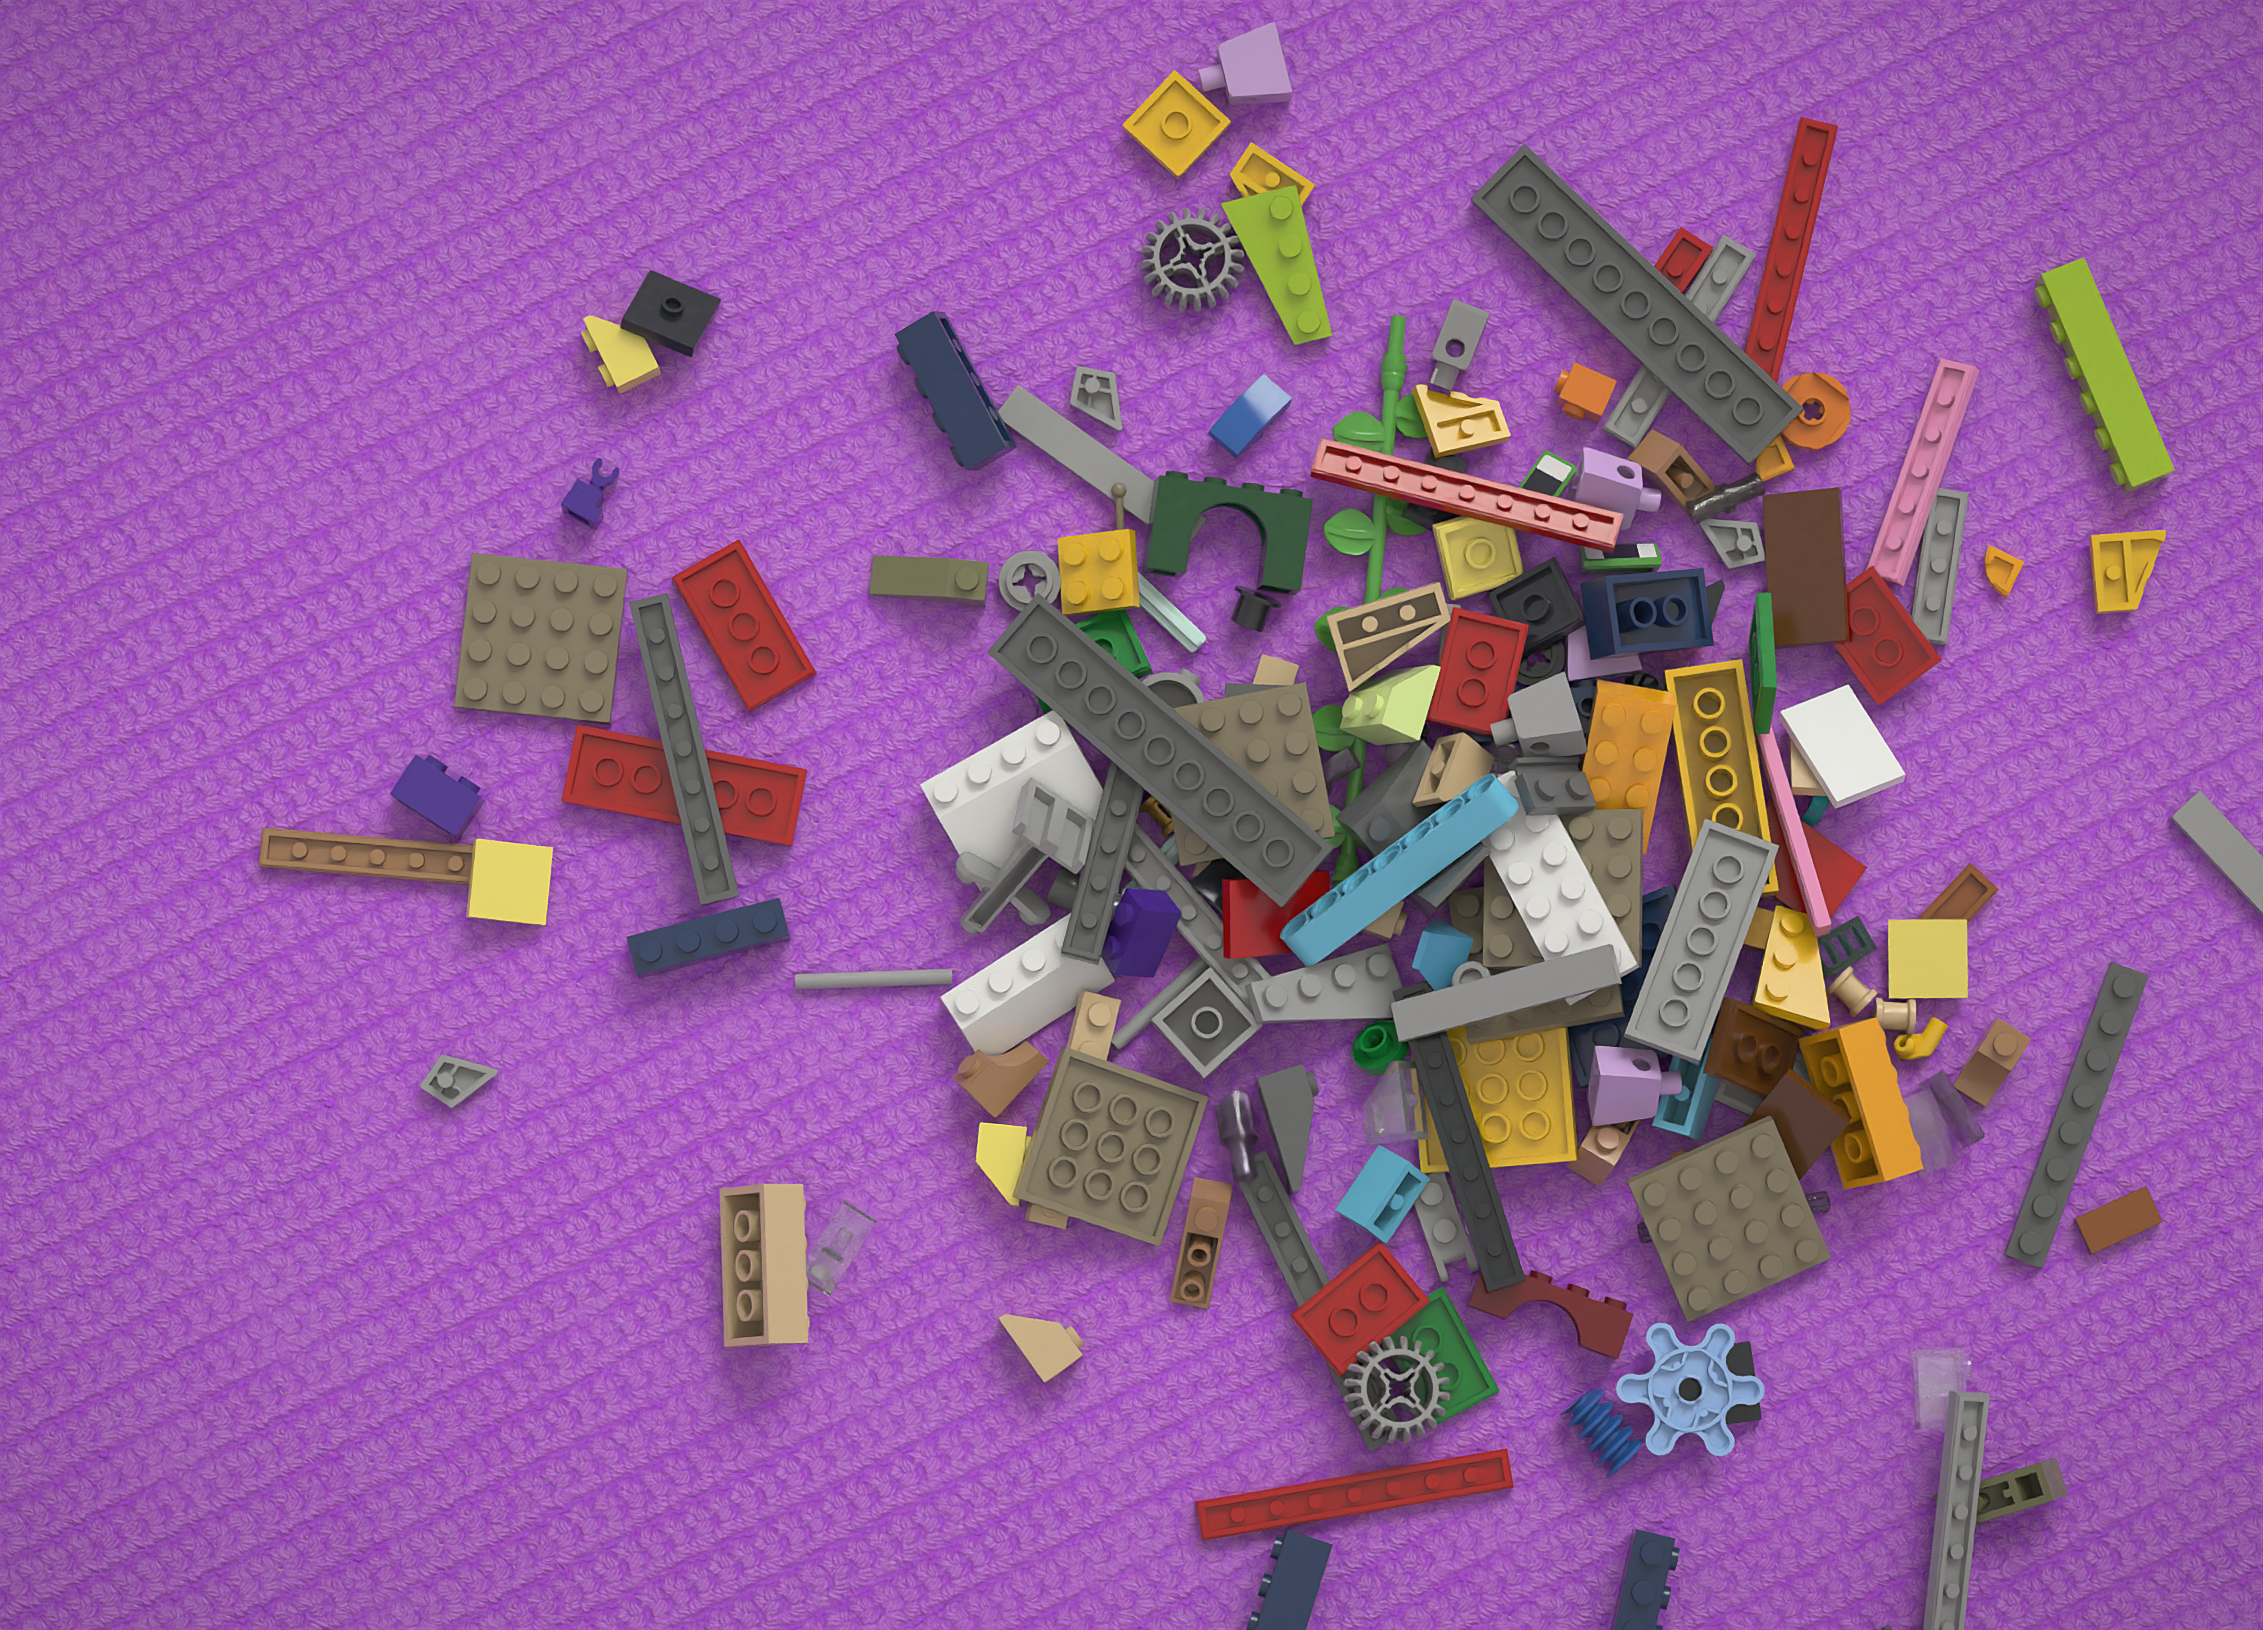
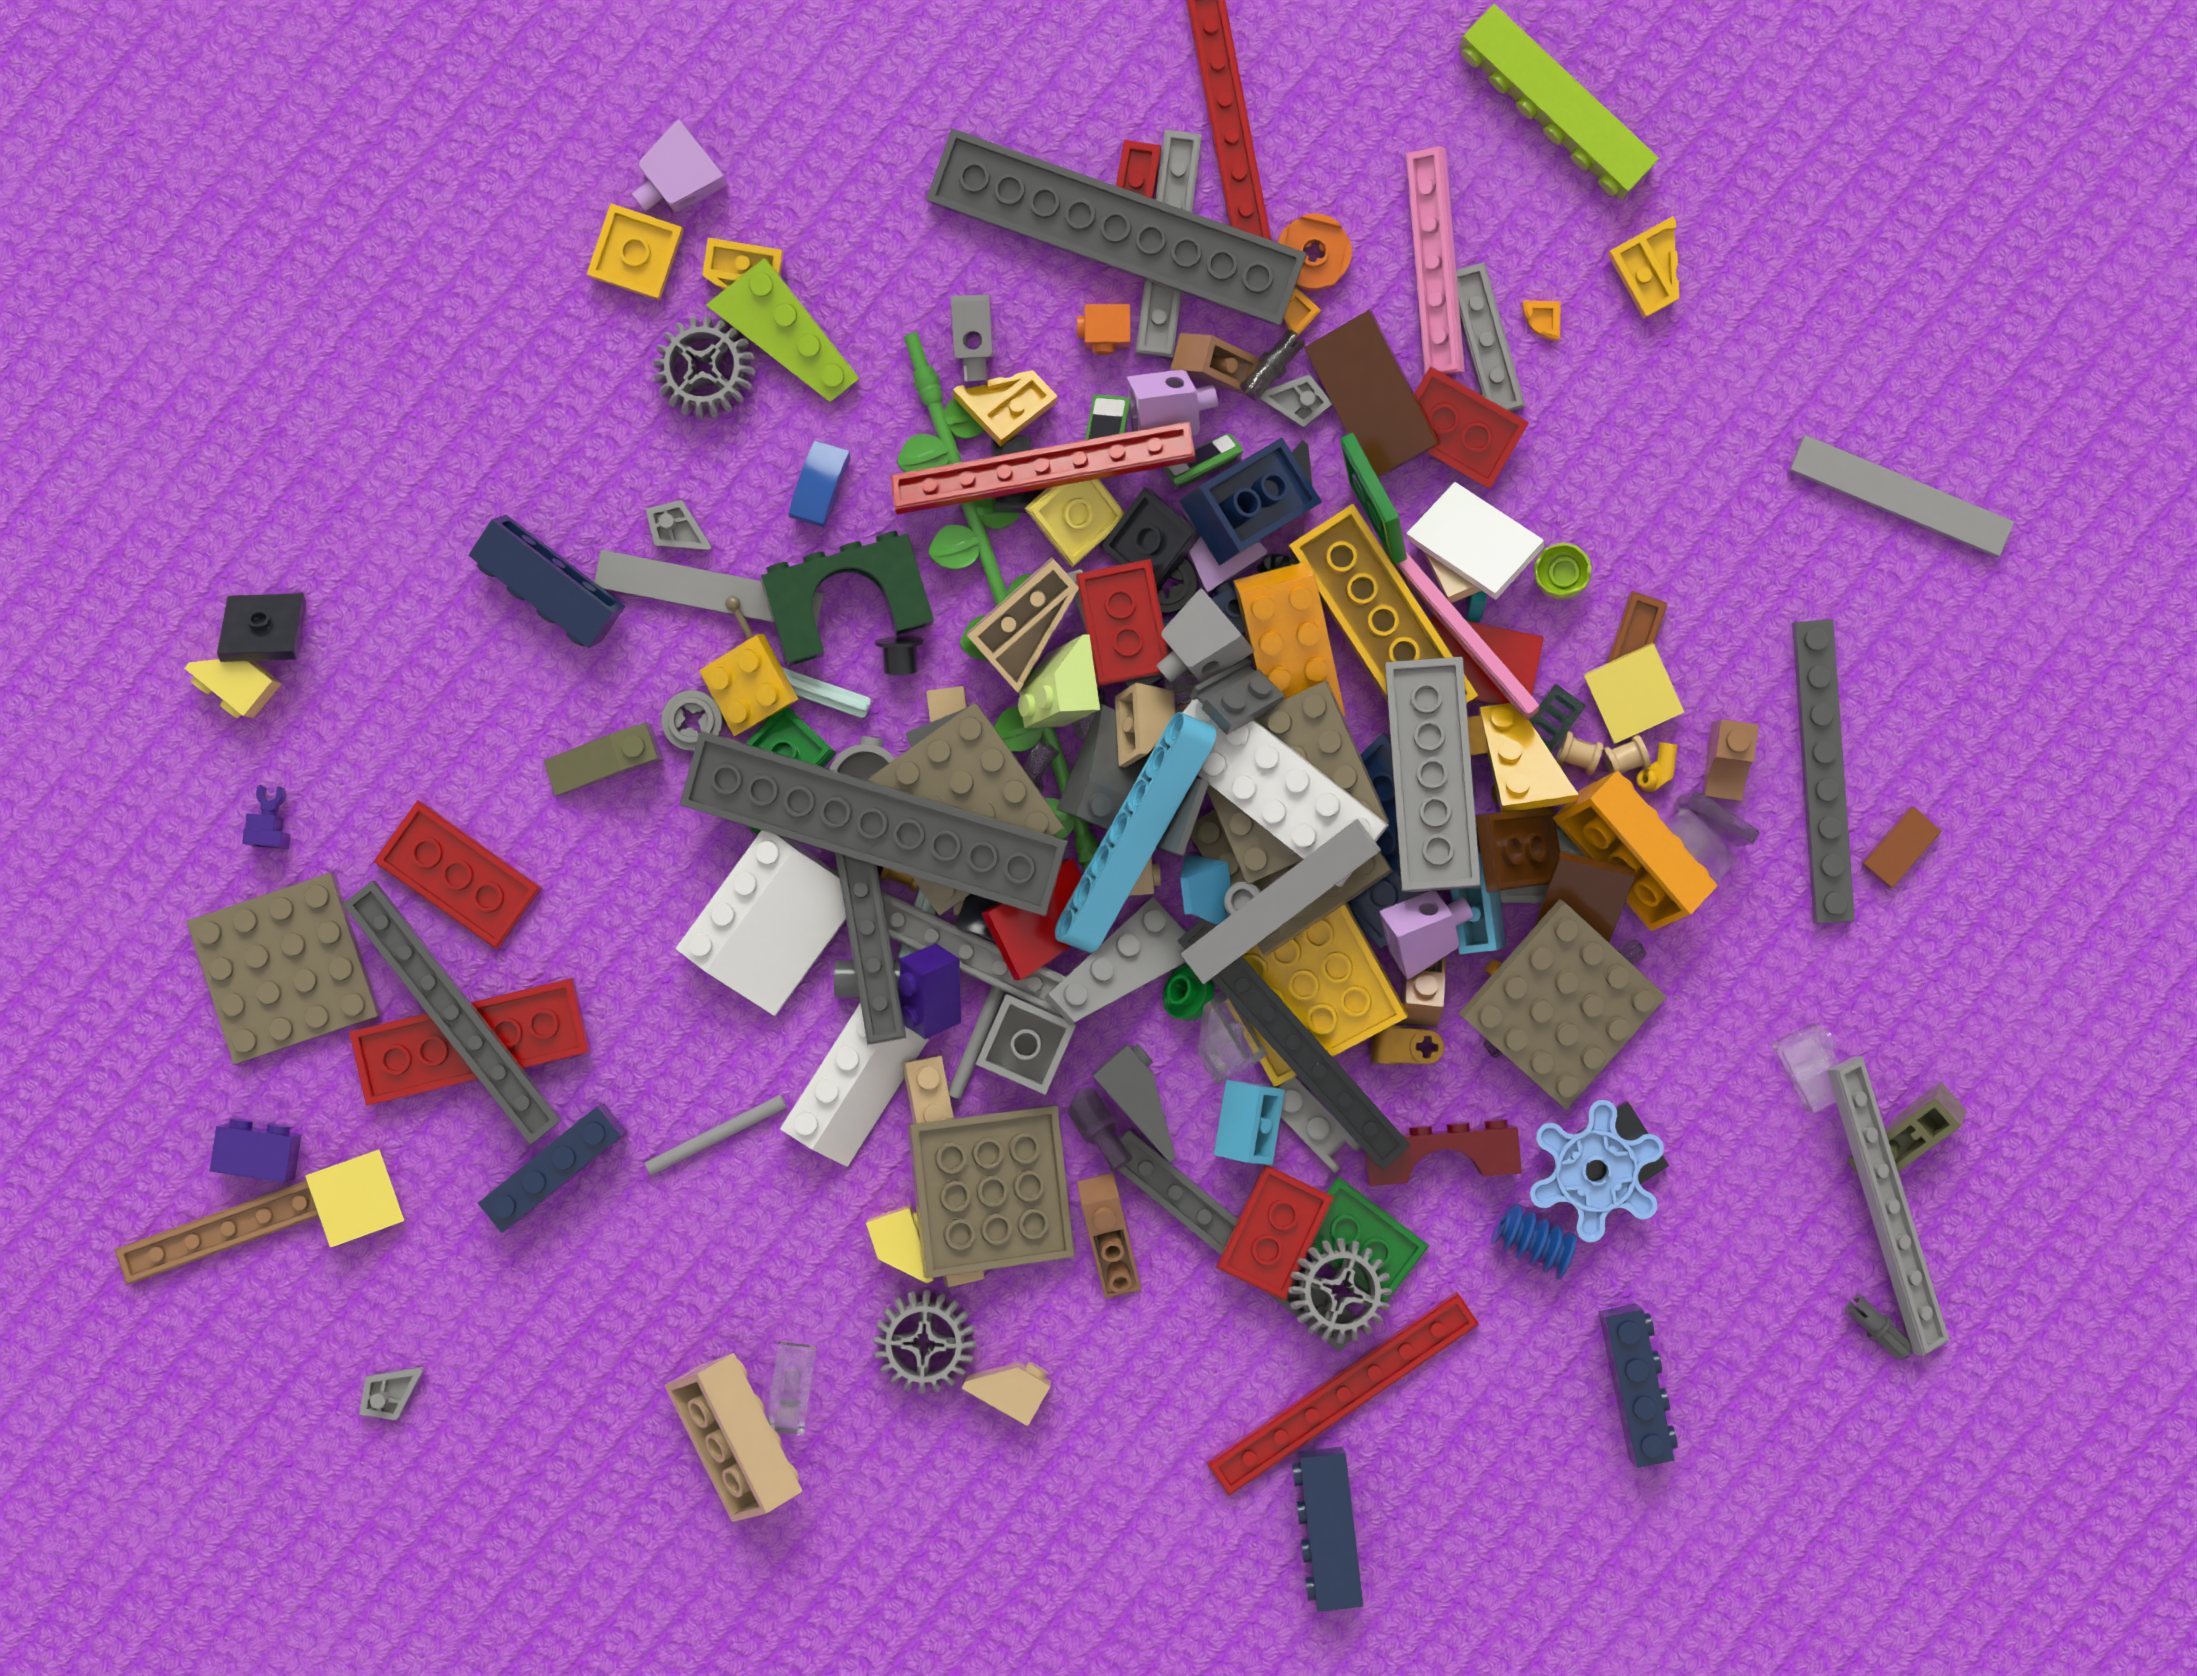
camera: 25 degrees left, 5 degrees up
(952, 1246) = (907, 1341): none -> light grey gear
(999, 1078) = (864, 1175): medium nougat arch -> none
(1048, 829) = (804, 939): light grey piece -> none
(1554, 1186) = (1398, 1046): none -> pearl gold piece
(1911, 813) = (1562, 571): none -> lime hair

